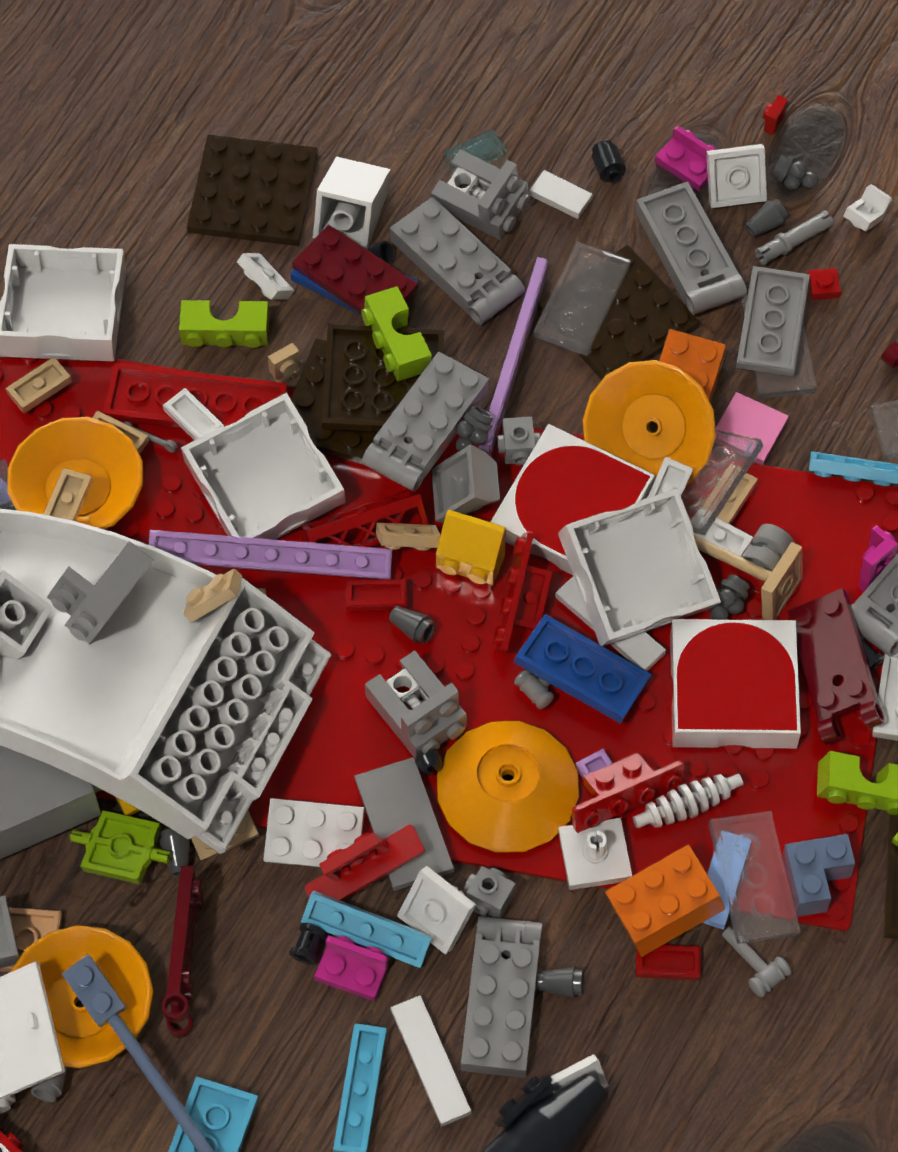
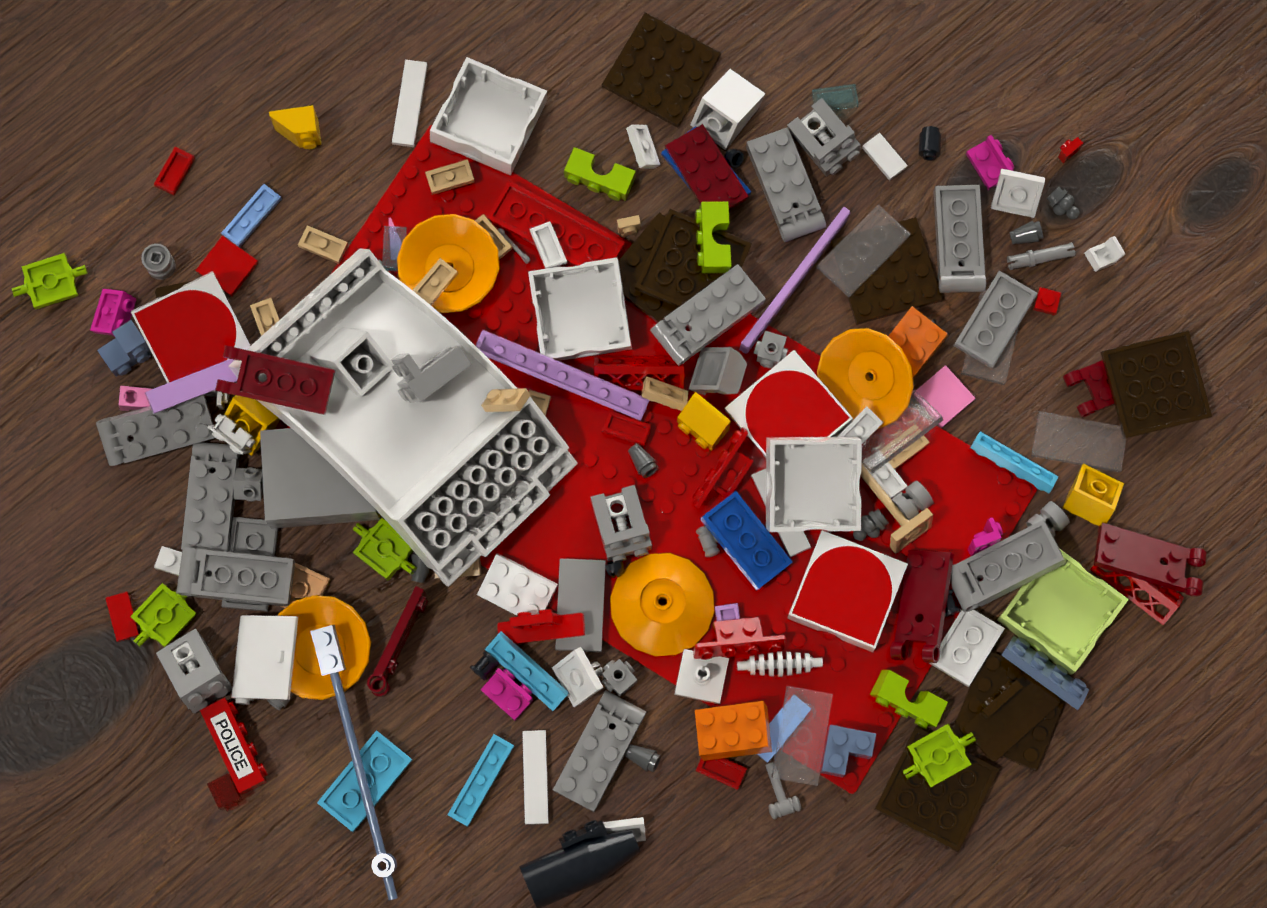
camera: 20 degrees right, 15 degrees up
(474, 428) = (740, 332): dark grey piece -> none

